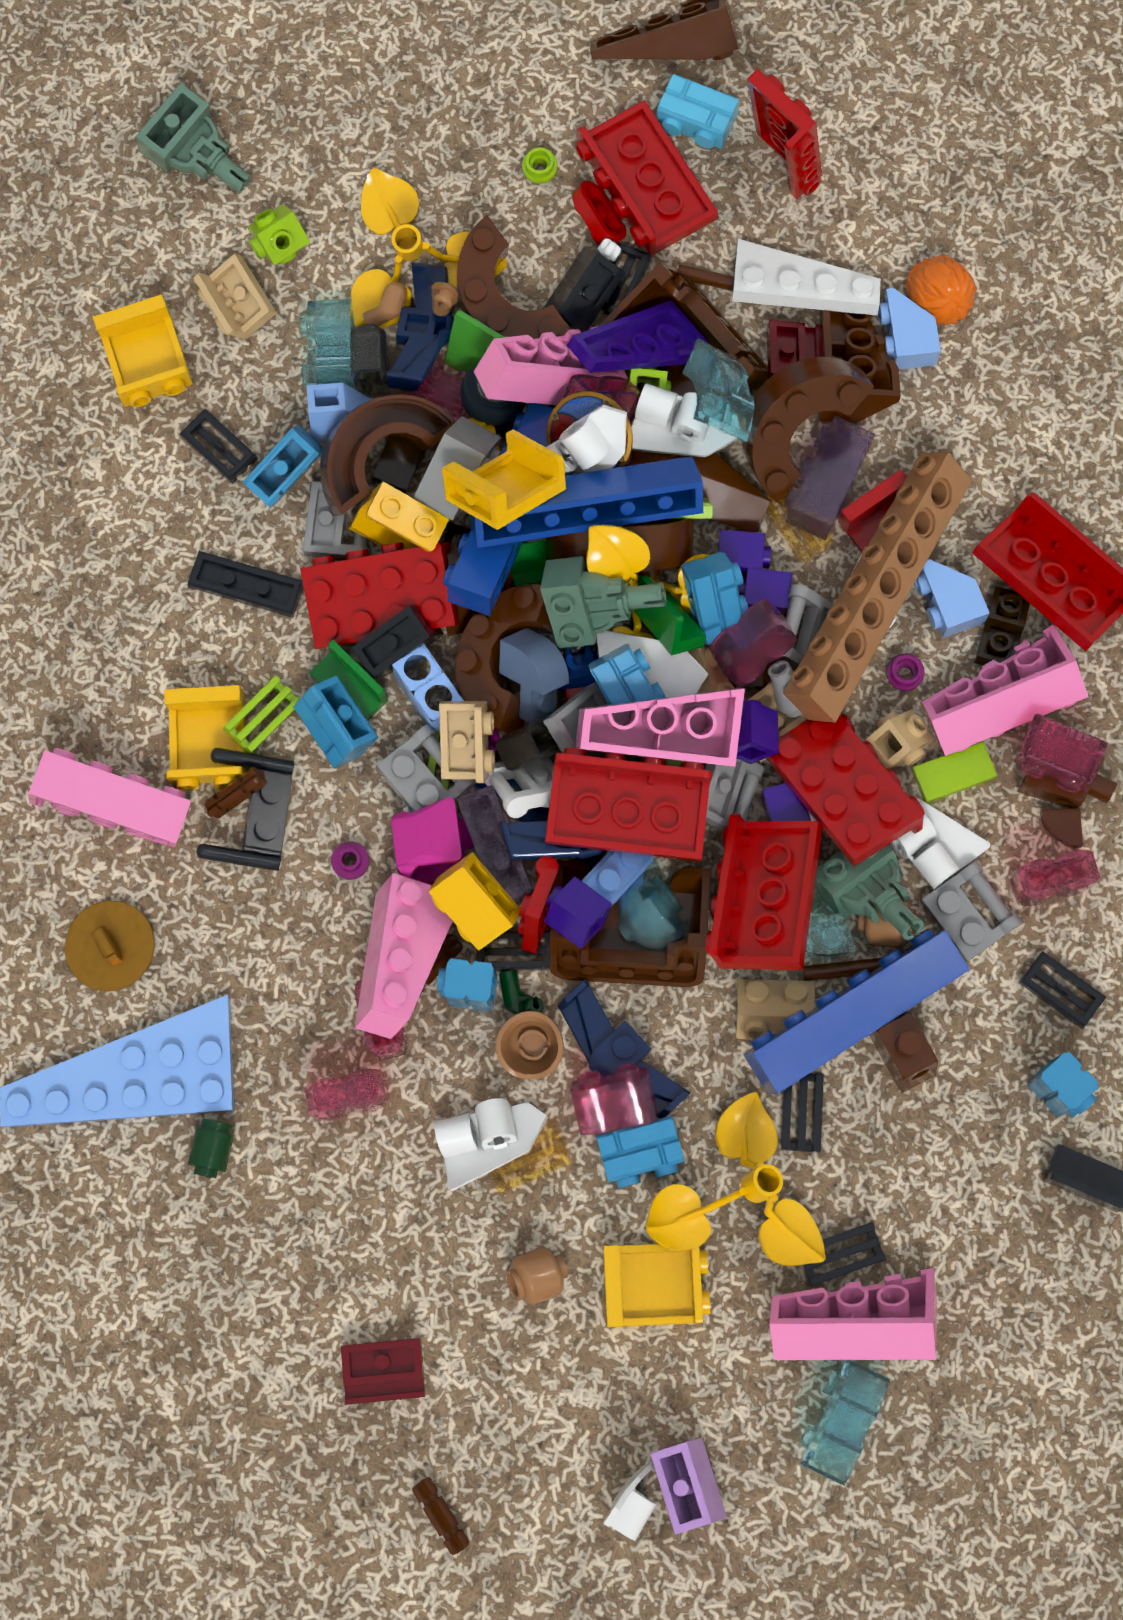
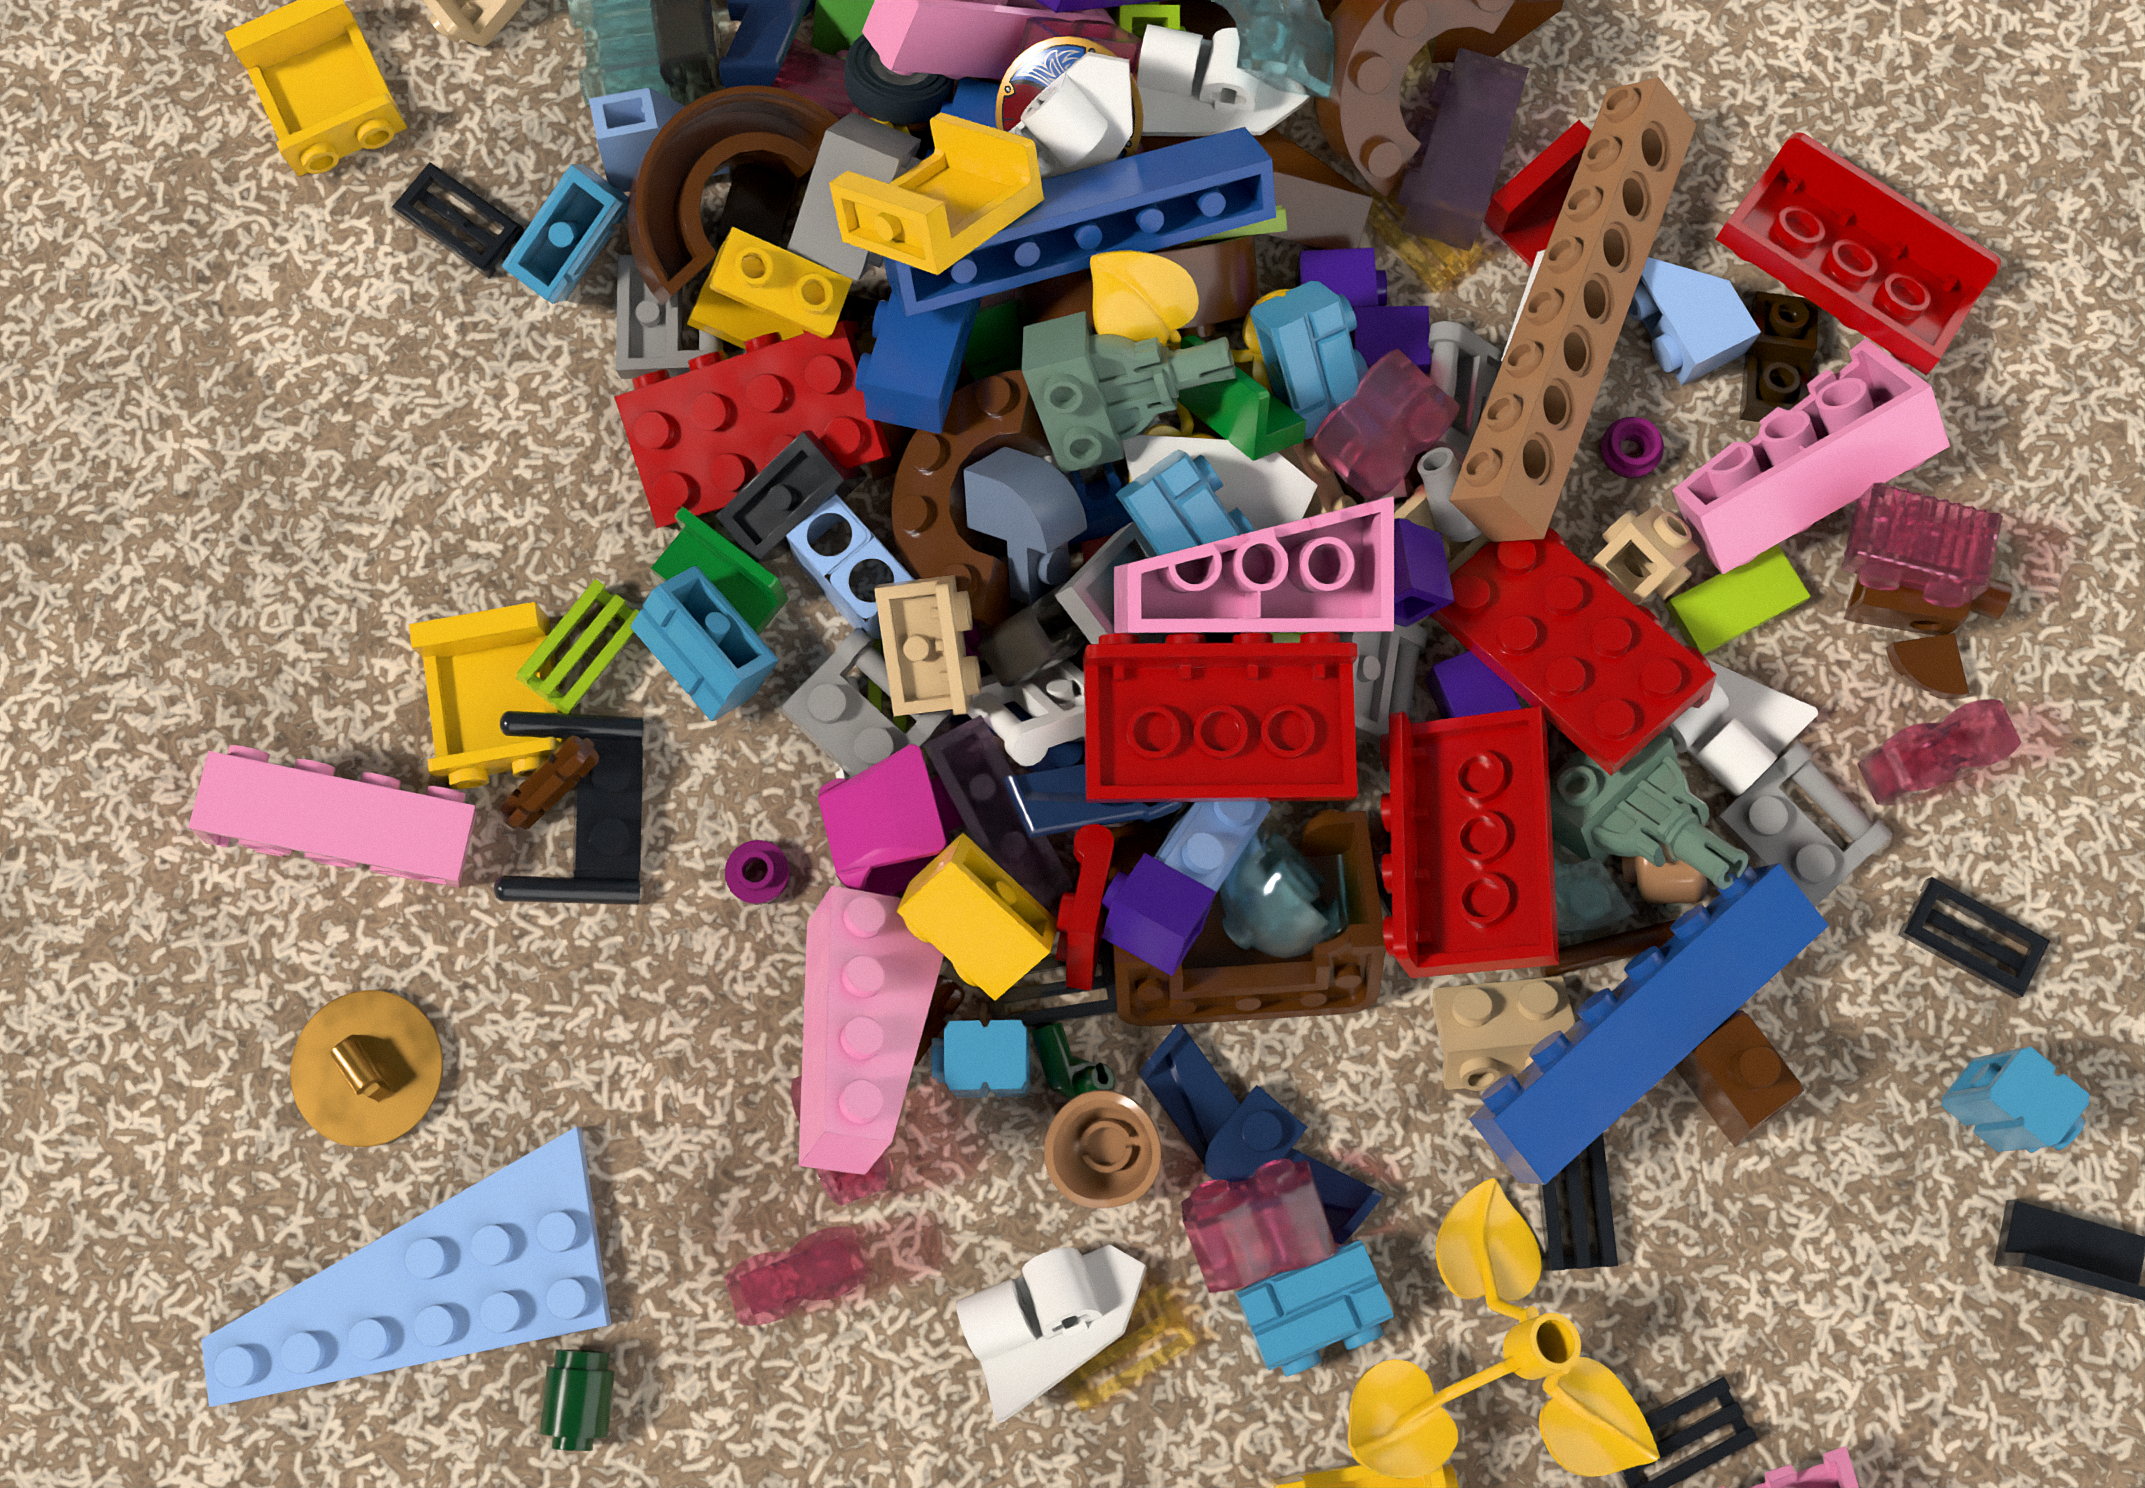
camera: 10 degrees left, 0 degrees up
(246, 584) = (529, 437): black tile -> none

